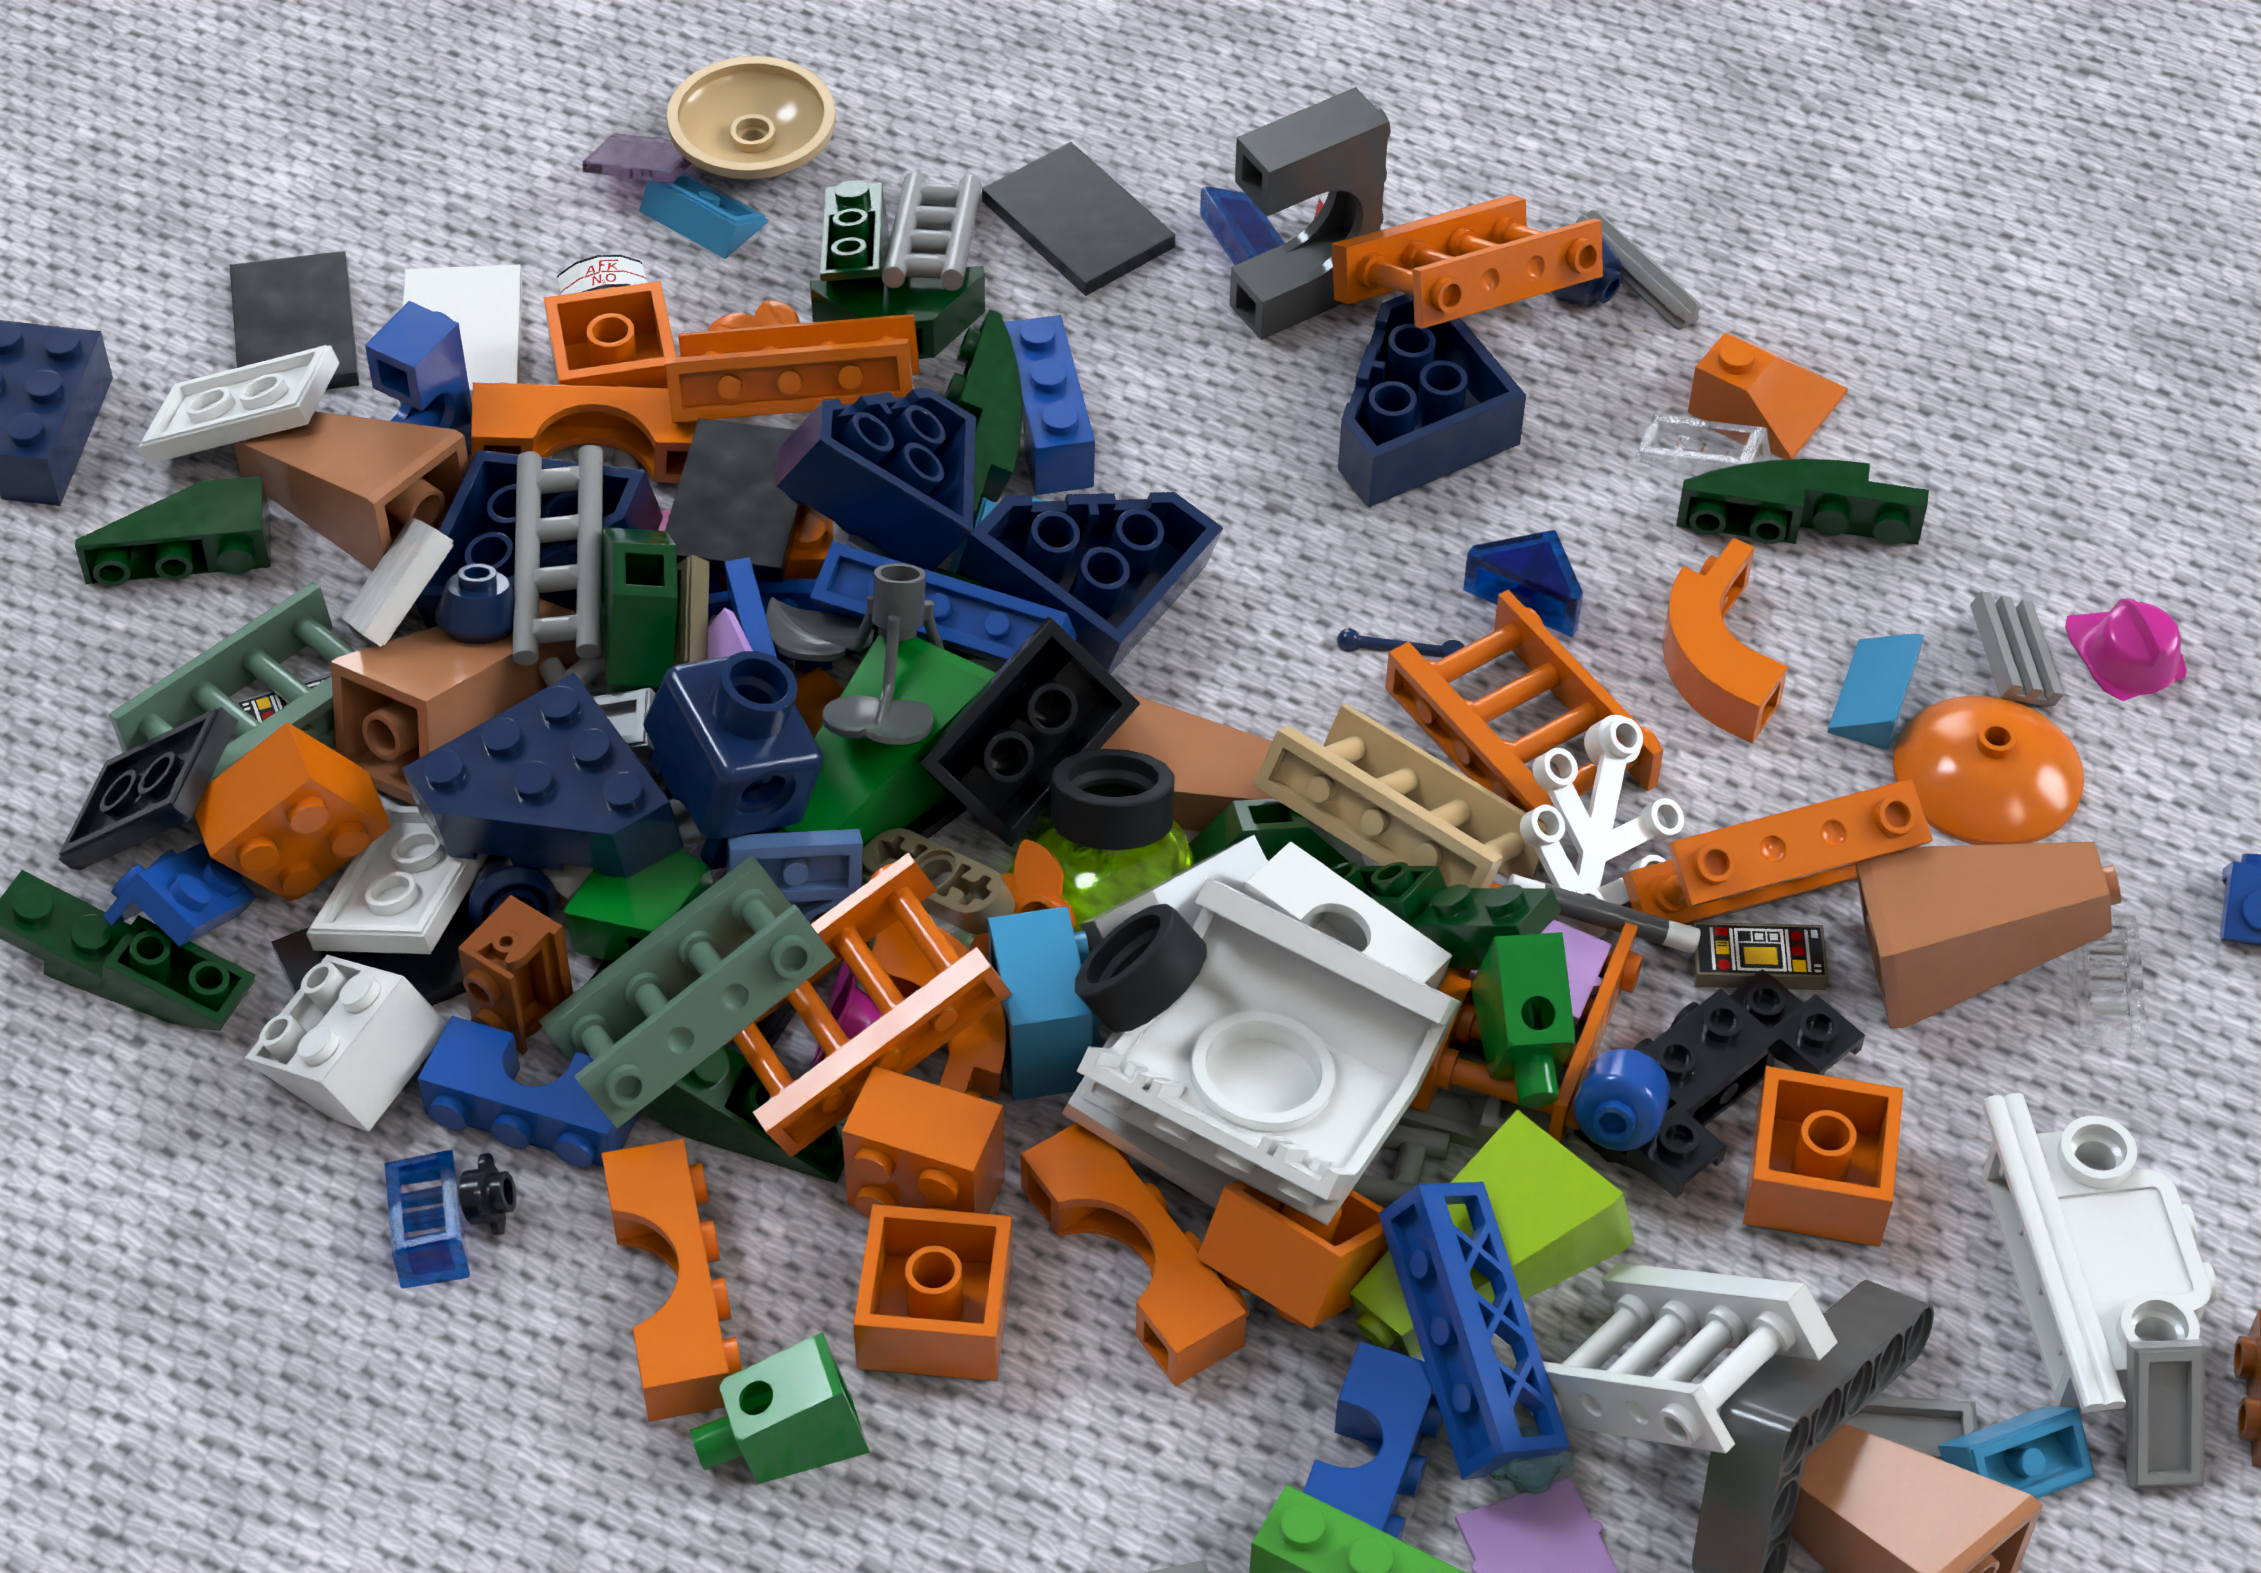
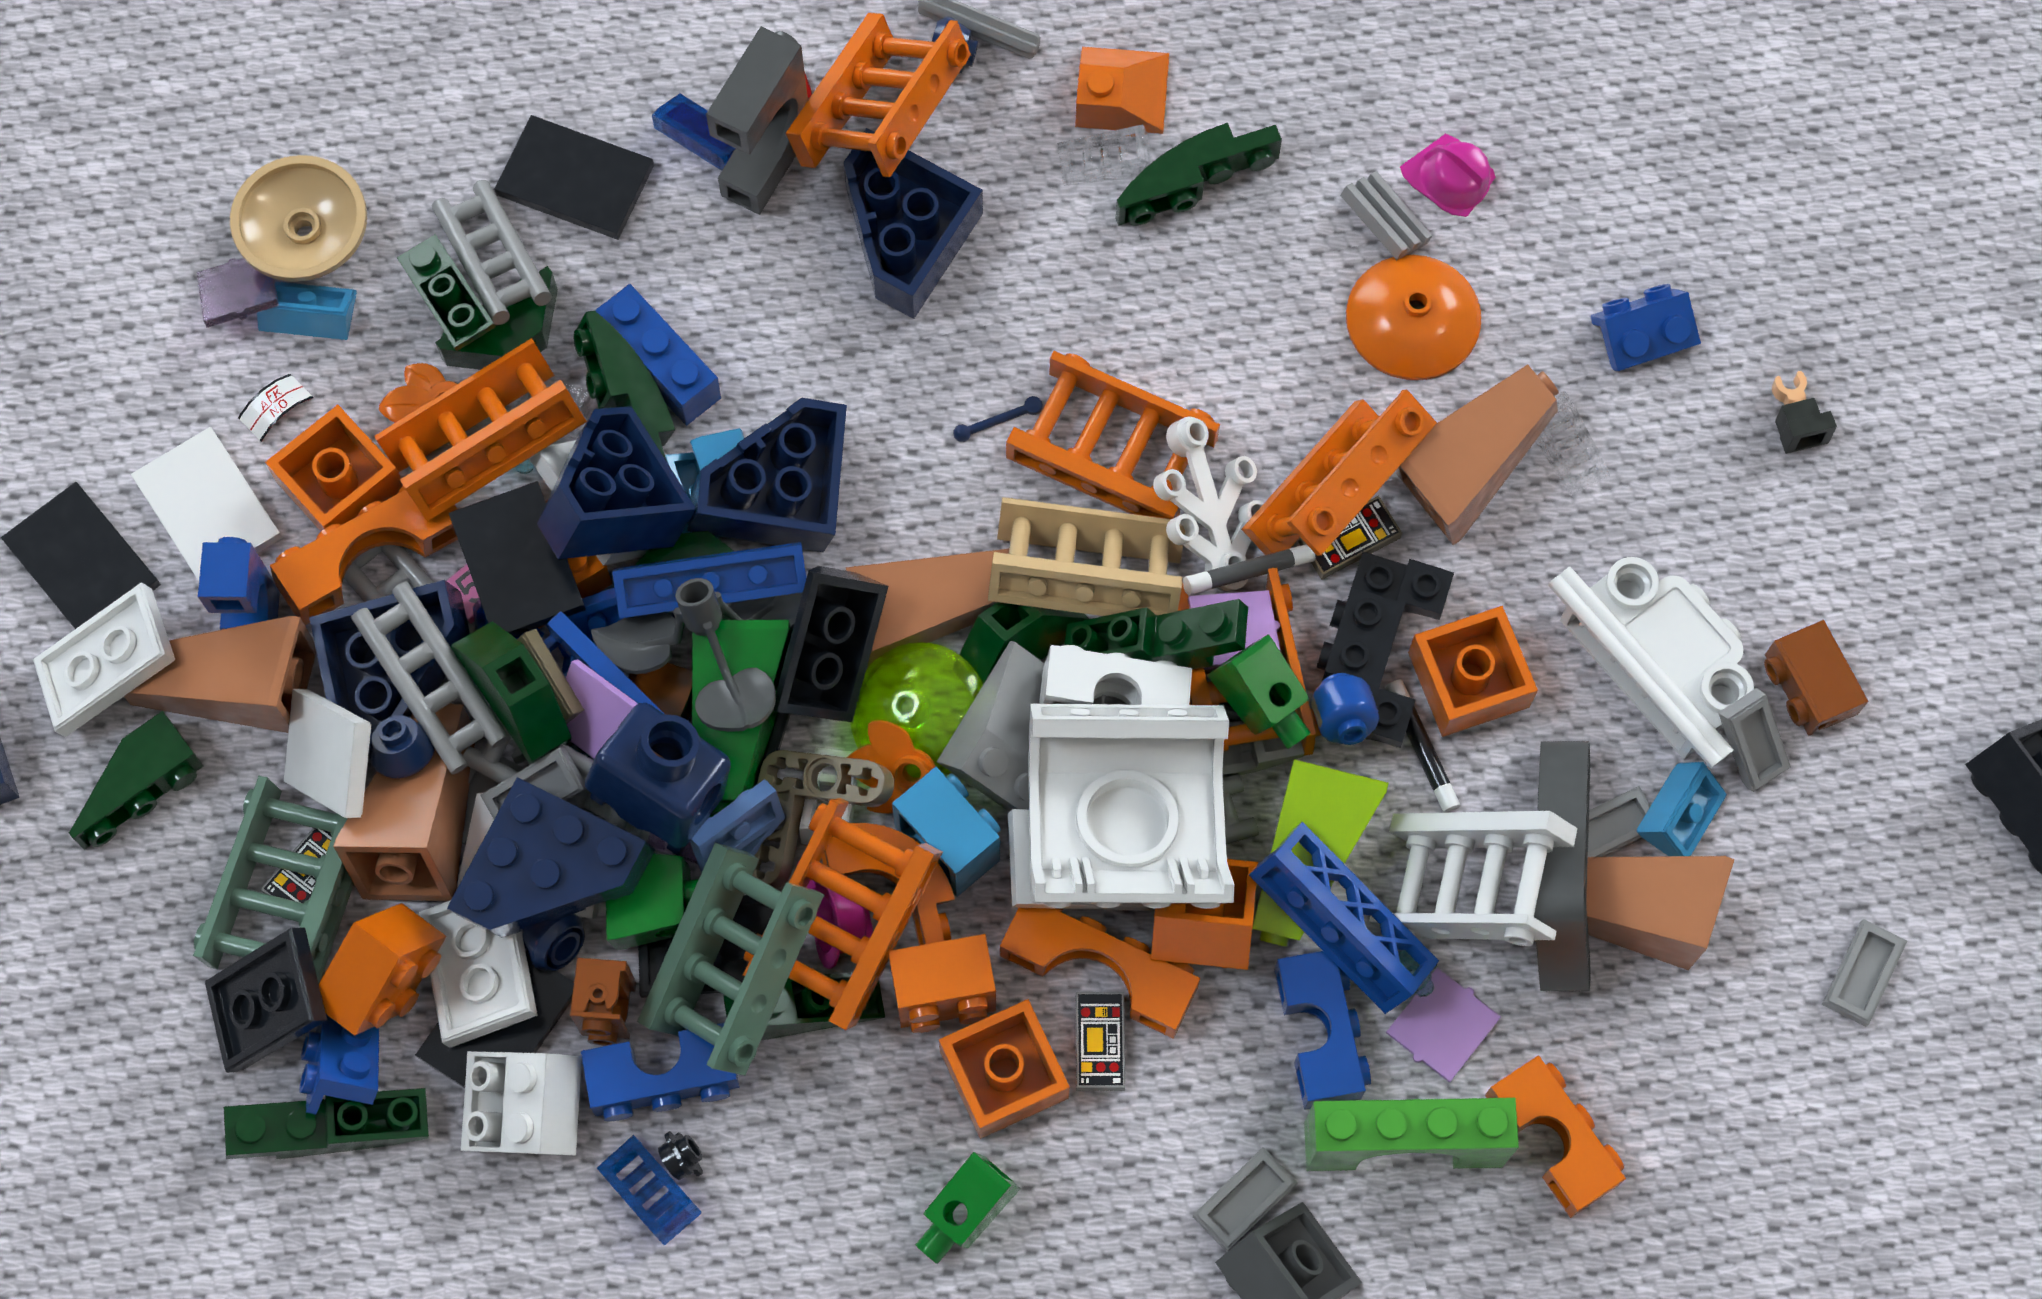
camera: 30 degrees left, 20 degrees up
(681, 1345) = (792, 1103): orange arch -> none
(1078, 1338) = (1100, 1041): none -> tile
(1112, 799) = (913, 690): black tyre -> none
(1141, 968) = (1043, 800): black tyre -> none
(1533, 571) = (1057, 326): clear blue slope -> none
(1705, 661) = (1200, 332): orange arch -> none
(1711, 1212) = (1427, 755): none -> black bar
(1876, 689) = (1315, 292): dark azure slope -> none

